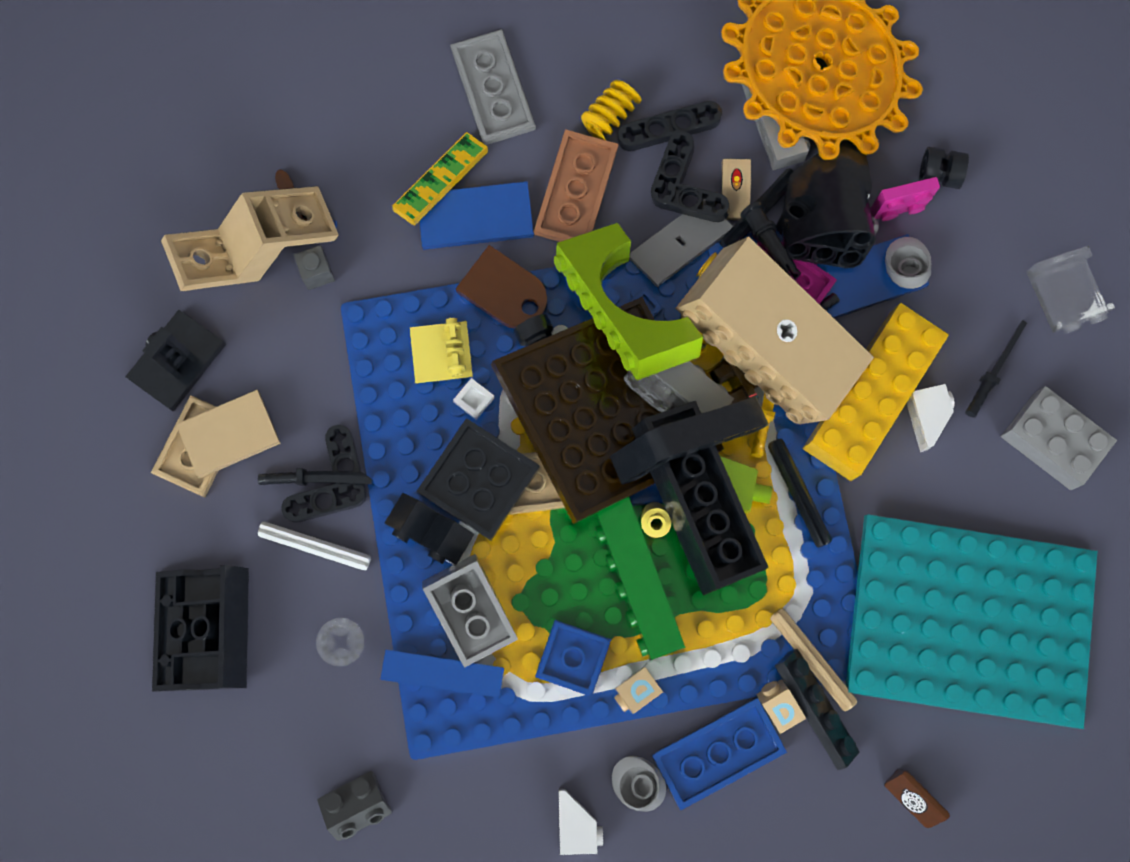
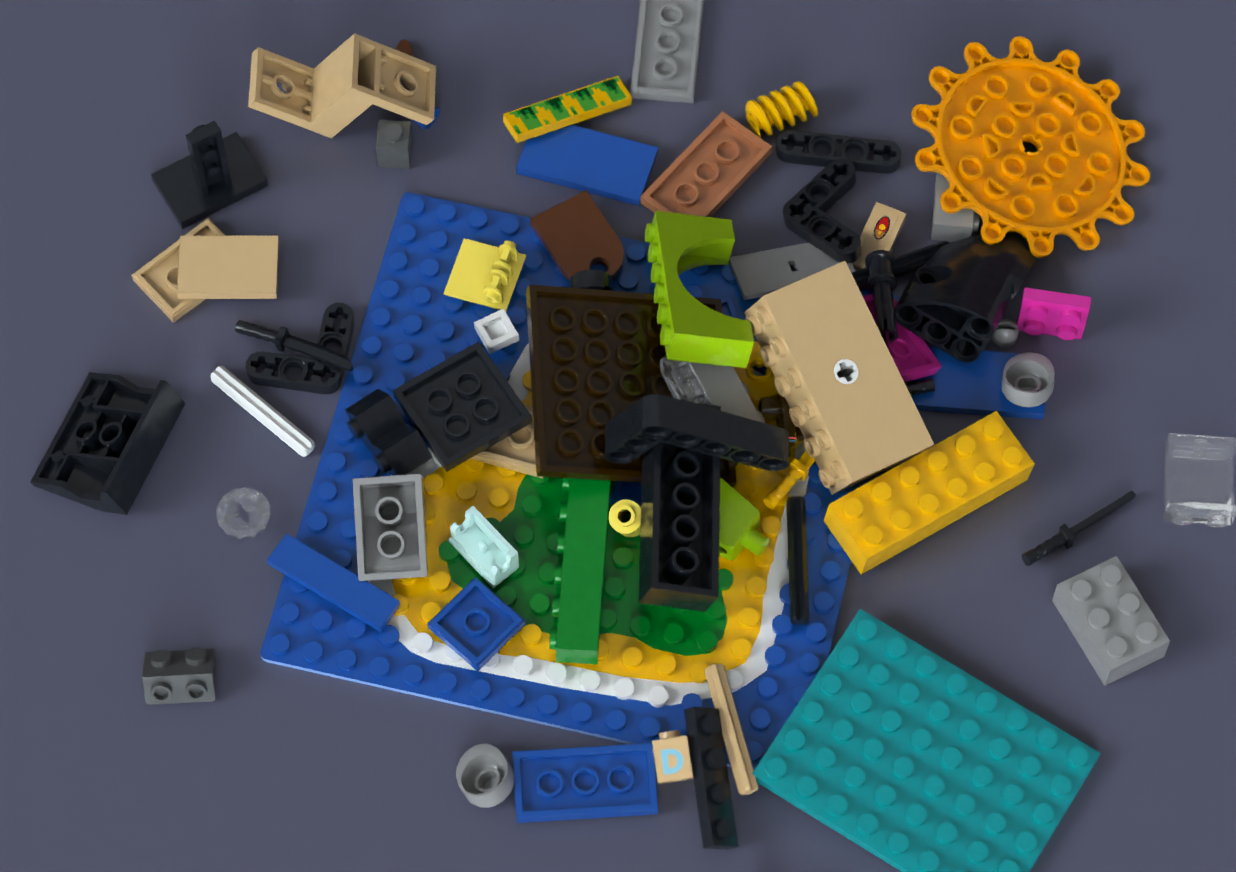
camera: 25 degrees right, 15 degrees down
(550, 592) = (484, 547): none -> light aqua hinge
(577, 827) = (398, 790): white slope -> none
(637, 691) = (527, 679): tan brick -> none
(929, 413) = (982, 540): white slope -> none
(953, 170) = (1127, 306): black wheel -> none

